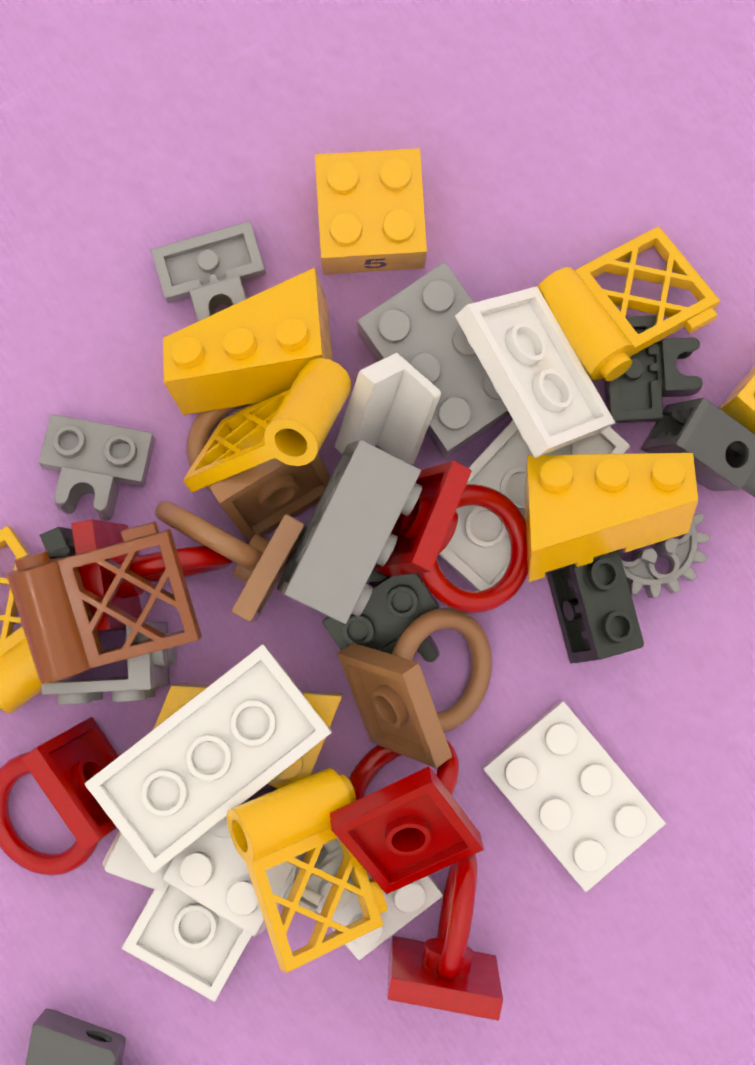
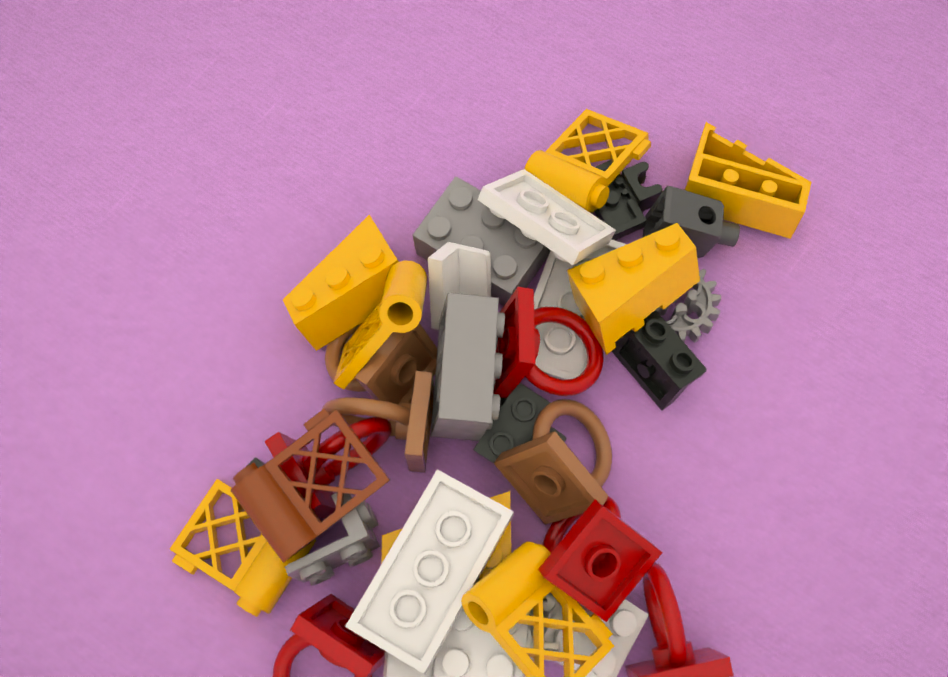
camera: 15 degrees left, 15 degrees down
(94, 461) = (263, 407): light grey plate -> none
(209, 268) = (296, 247): light grey plate -> none
(371, 211) = (393, 170): yellow brick -> none
(573, 795) = (709, 502): white plate -> none

